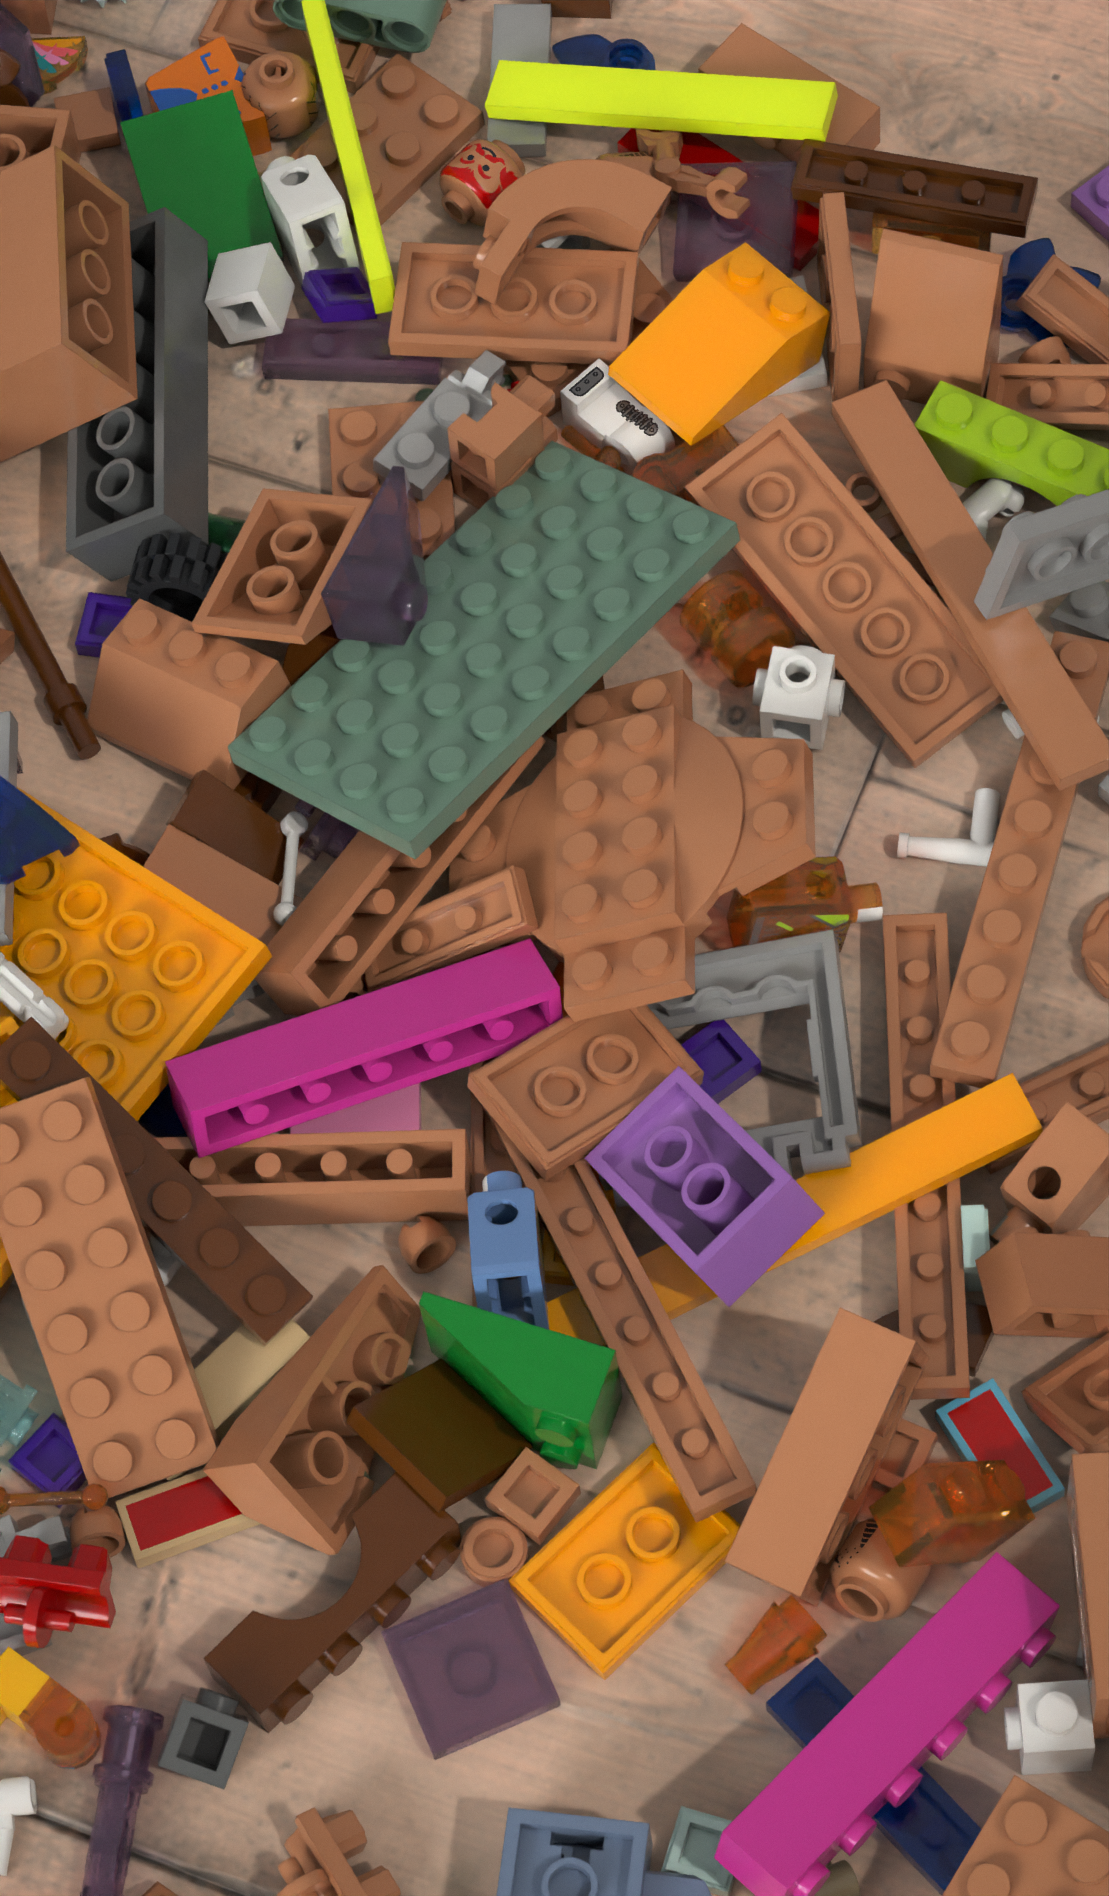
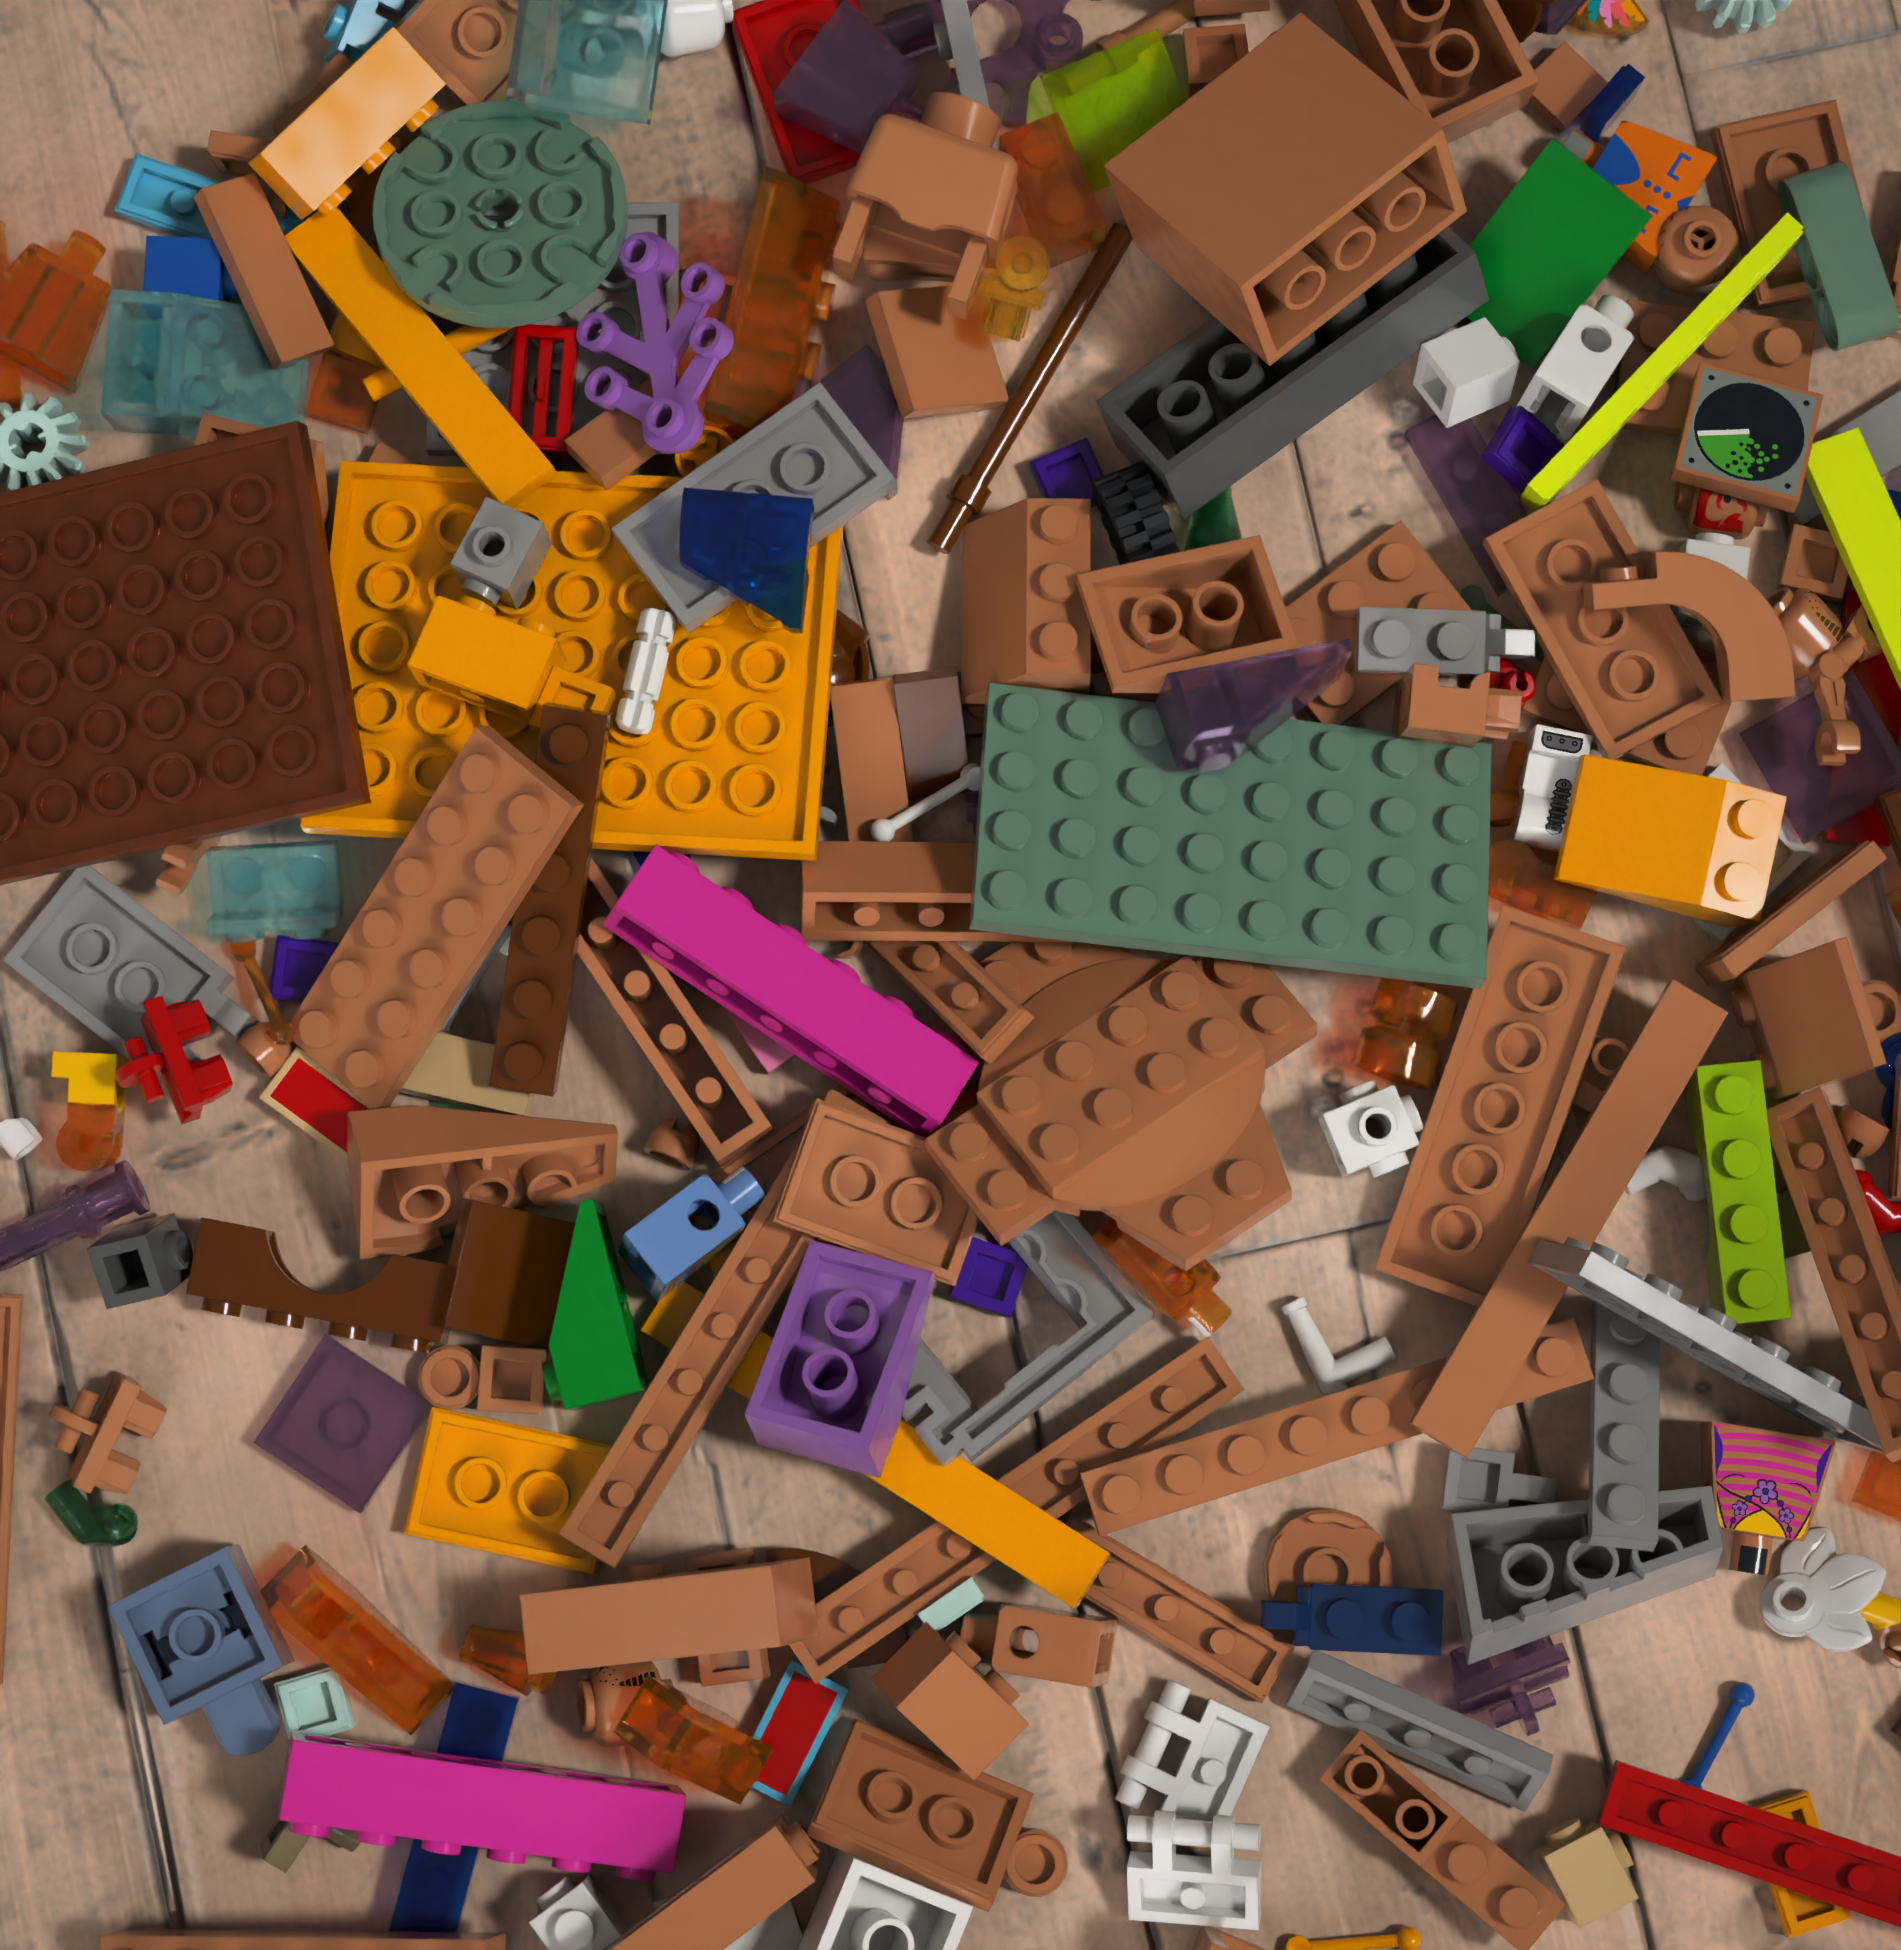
camera: 50 degrees right, 20 degrees up
(449, 129) = (1746, 437): none -> tile
(578, 142) = (1813, 563): none -> nougat plate
(665, 1767) = (355, 1639): none -> clear orange slope

